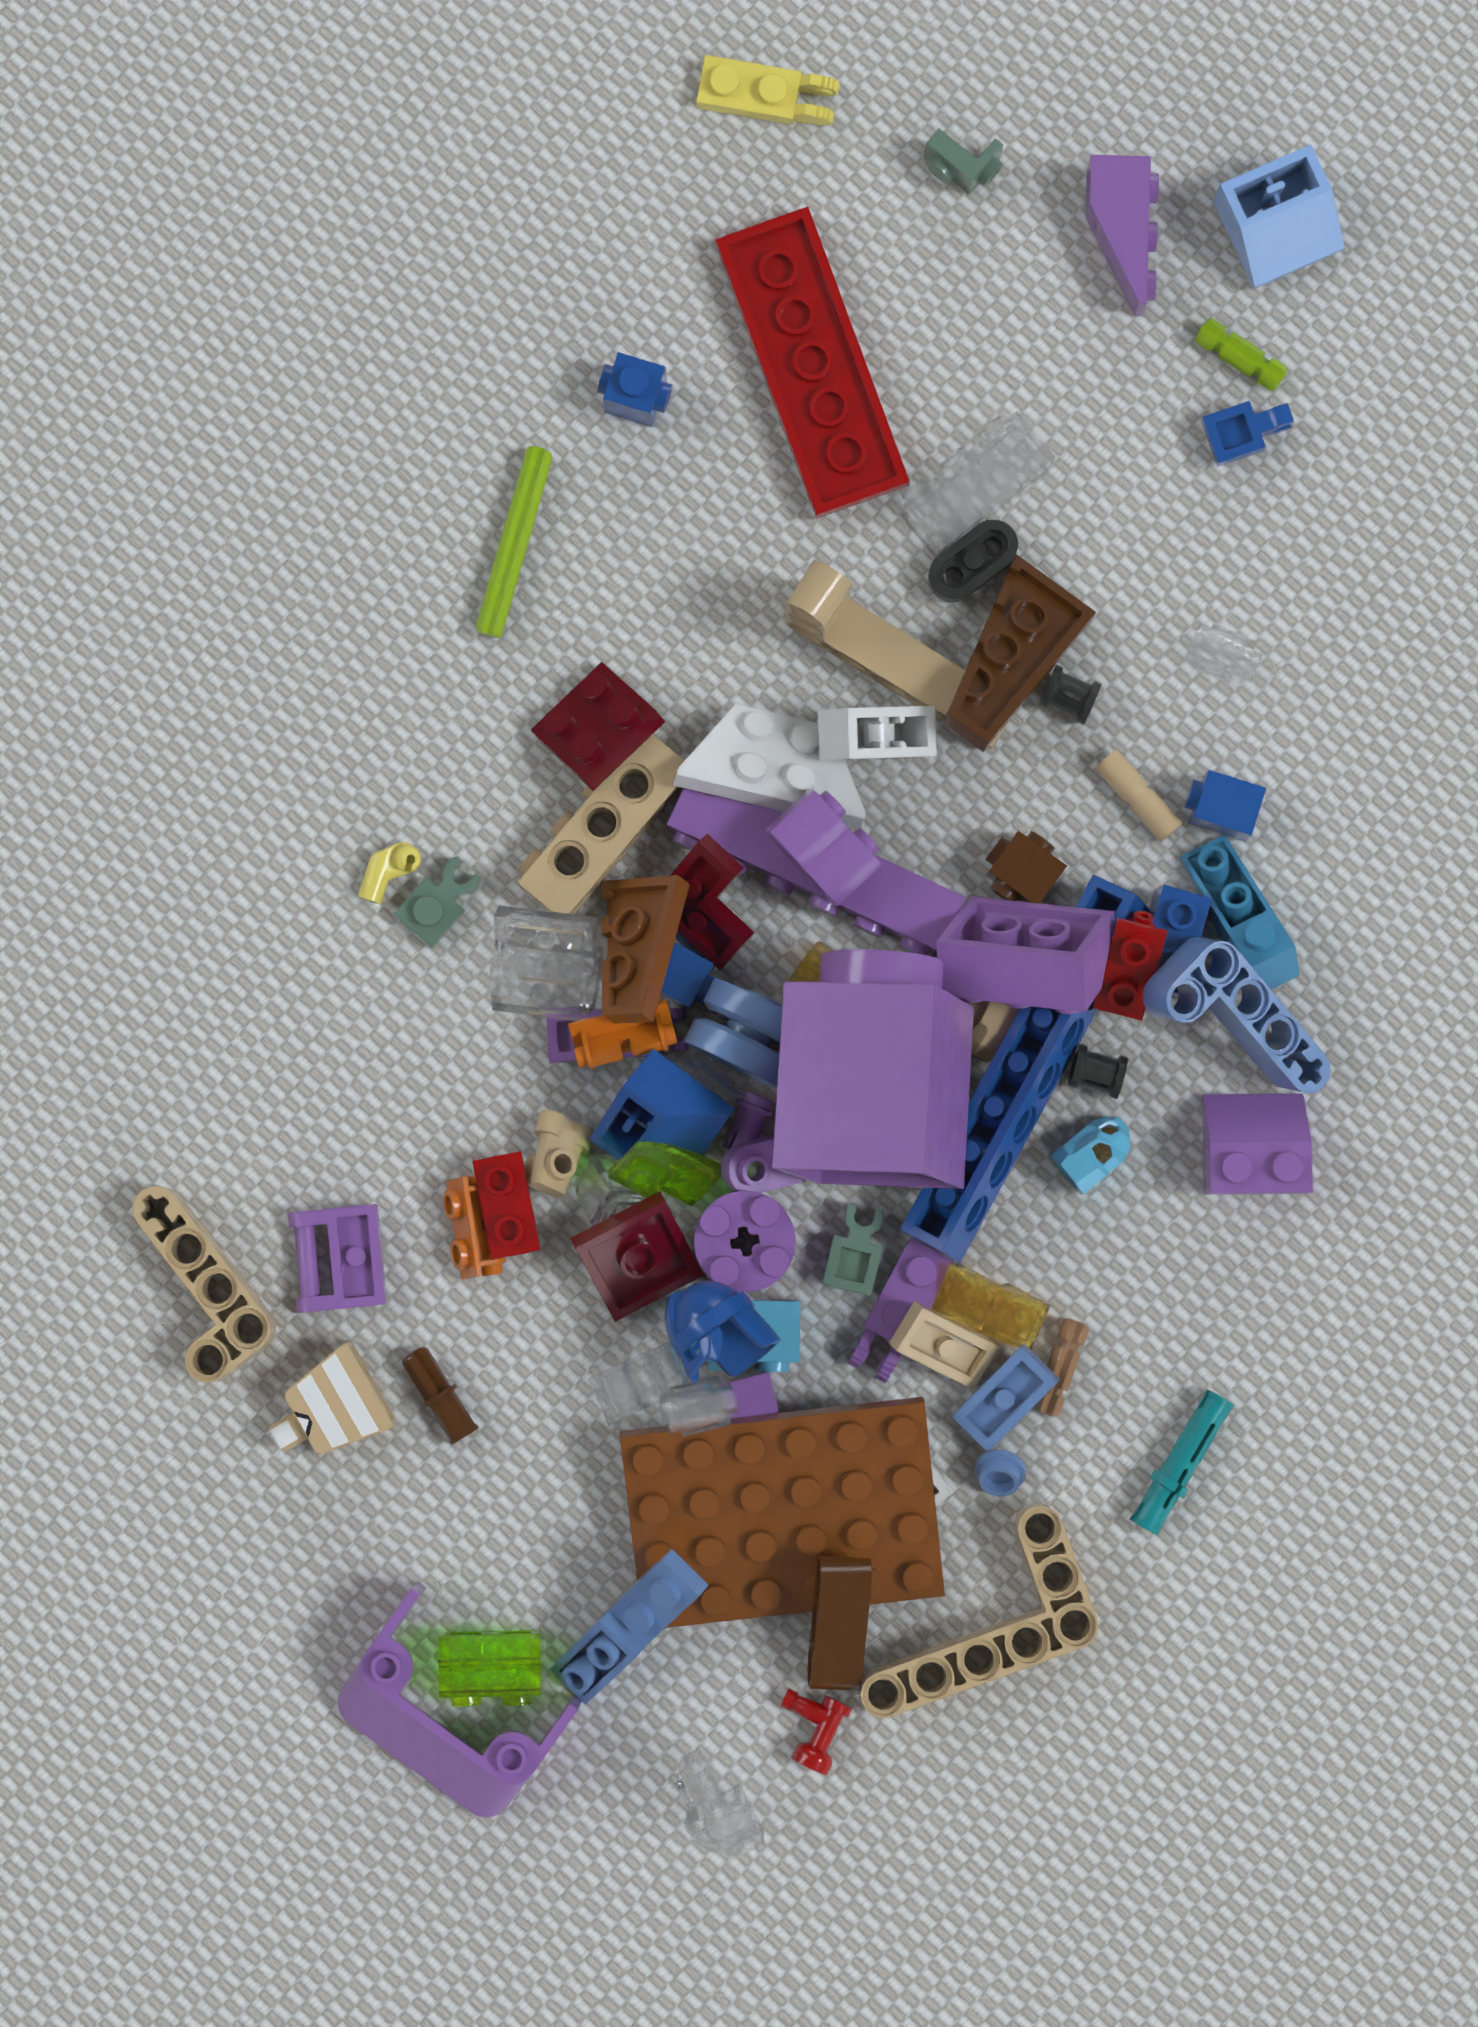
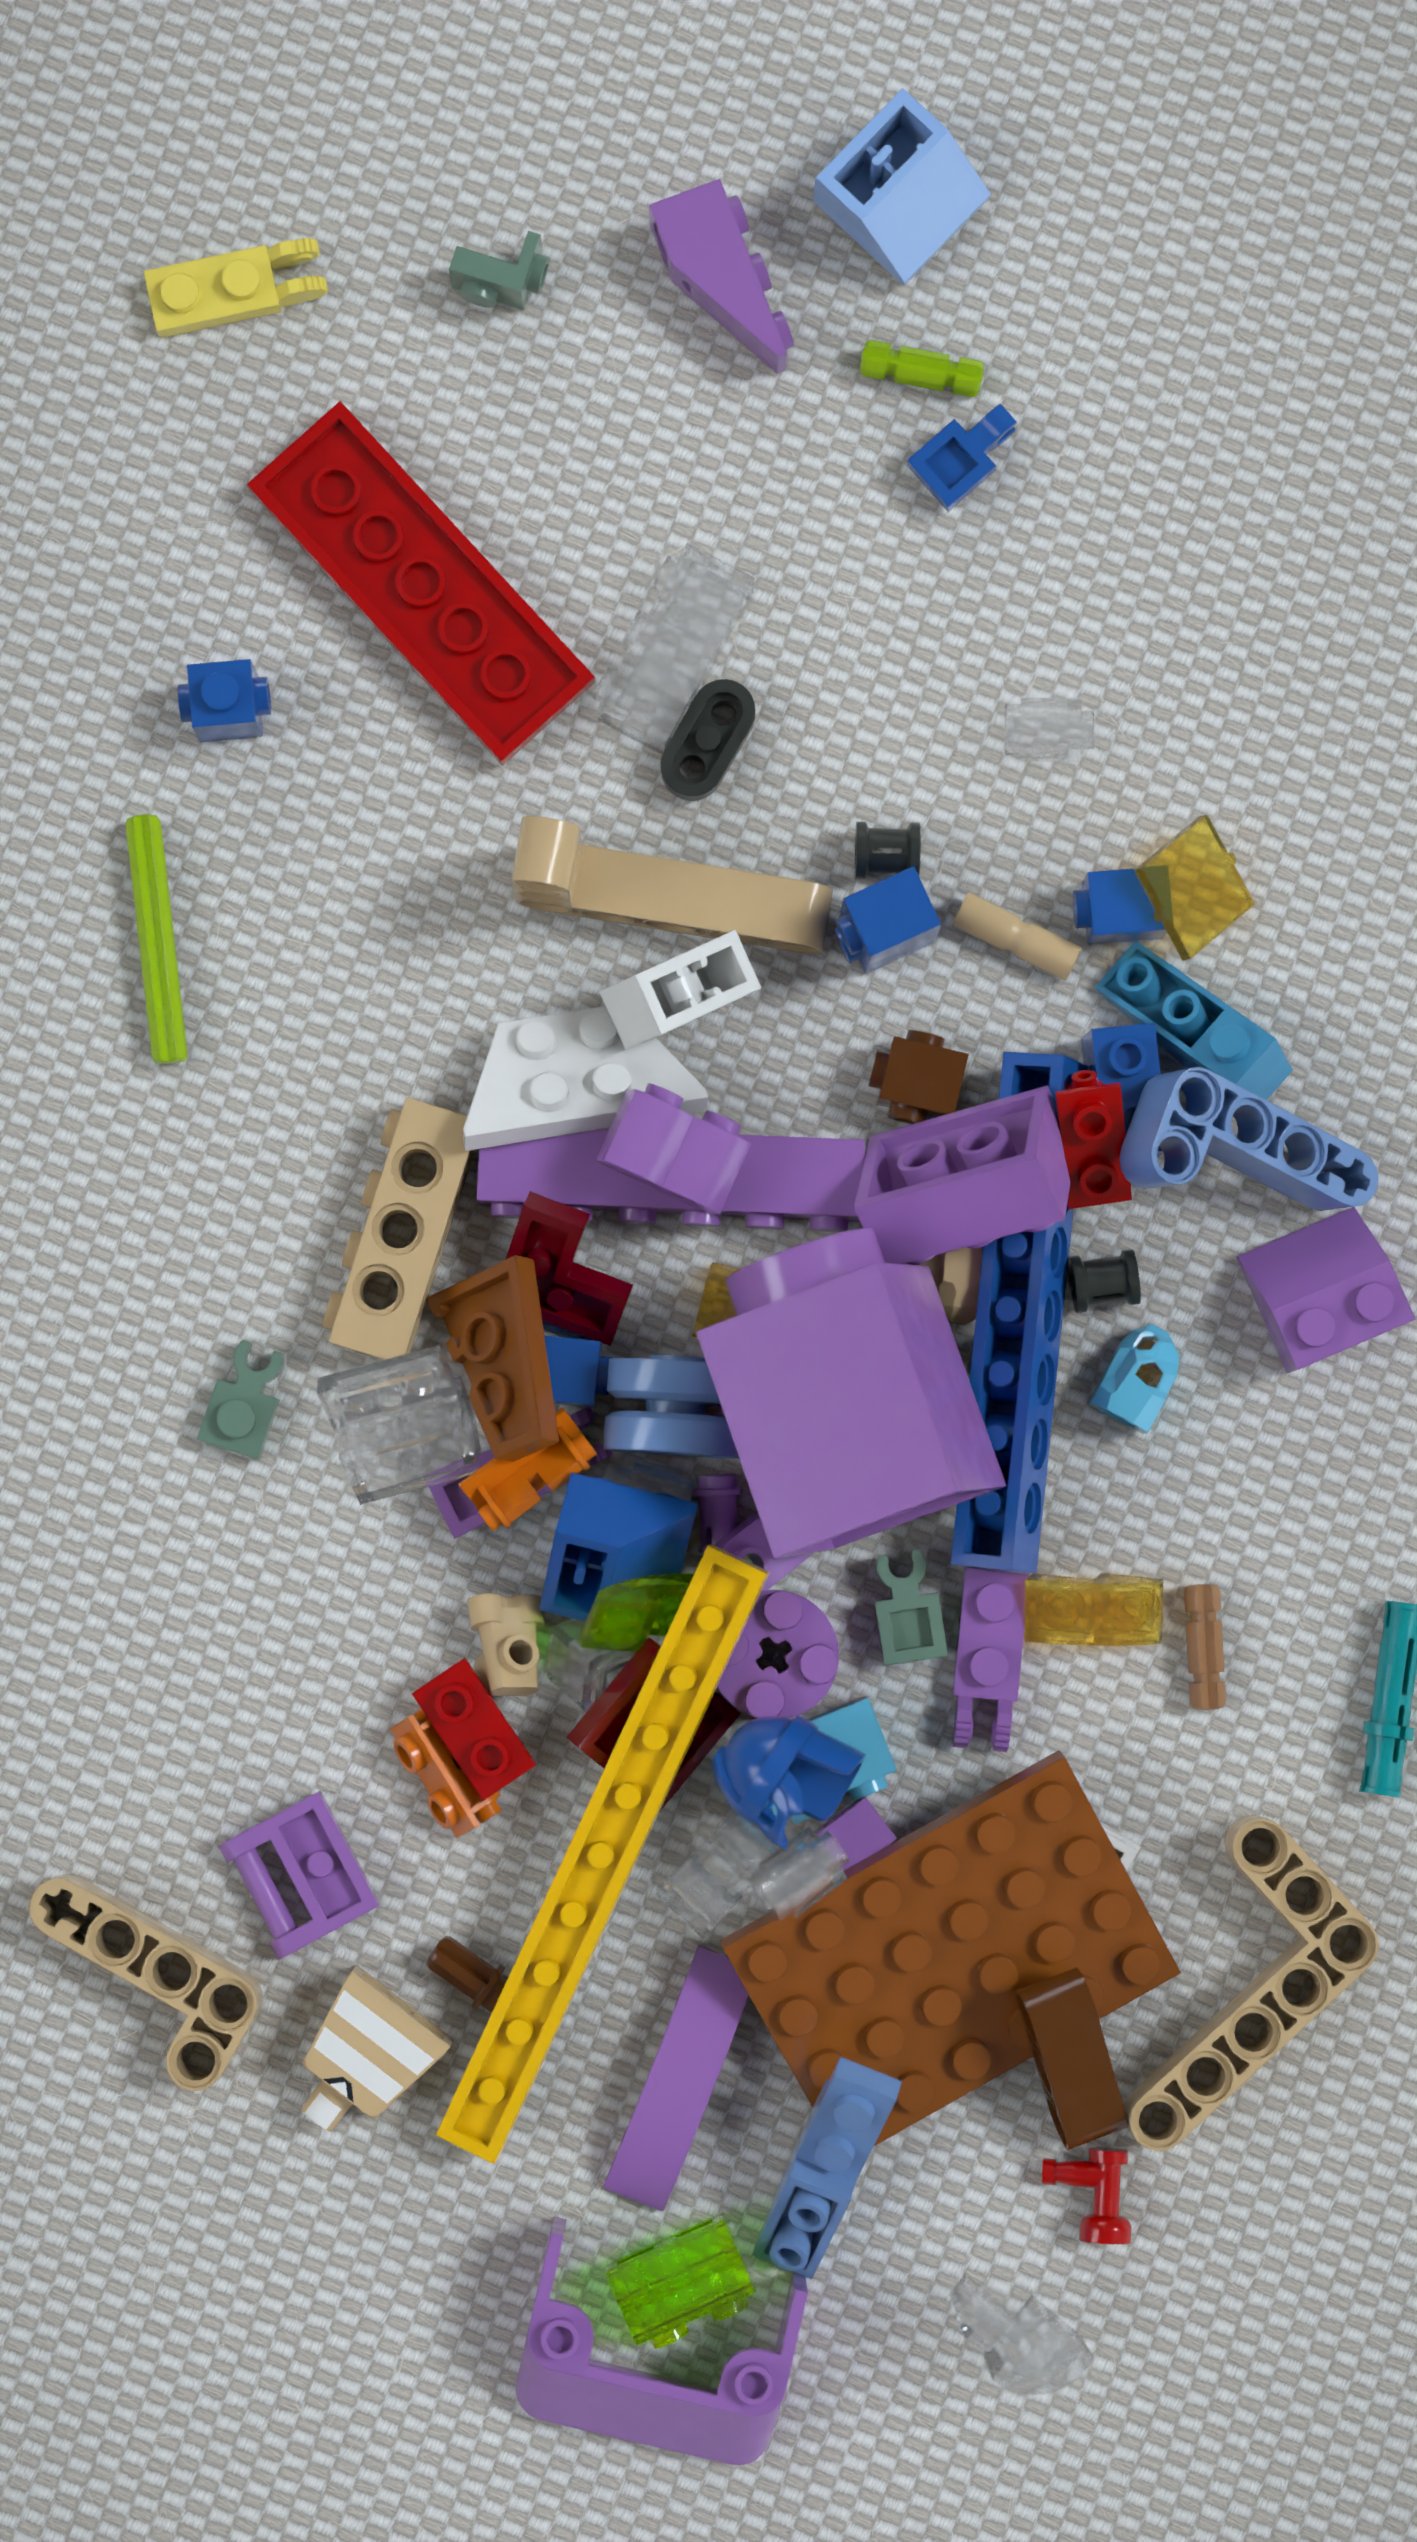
camera: 30 degrees left, 0 degrees up
(385, 866) = (164, 1385): light yellow arm -> none
(549, 1522) = (679, 2081): none -> medium lavender slope
(562, 1332) = (602, 1853): none -> yellow plate
(597, 726) = (346, 1117): dark red plate -> none
(944, 1345) = (1058, 1678): tan plate -> none
(1000, 1472) = (1185, 1800): medium blue plate -> none
(1006, 1397) = (1156, 1709): medium blue plate -> none
(1019, 646) = (804, 820): reddish brown wing -> none
(1047, 745) = (886, 921): none -> blue brick
(1282, 812) = (1194, 887): none -> clear yellow piece

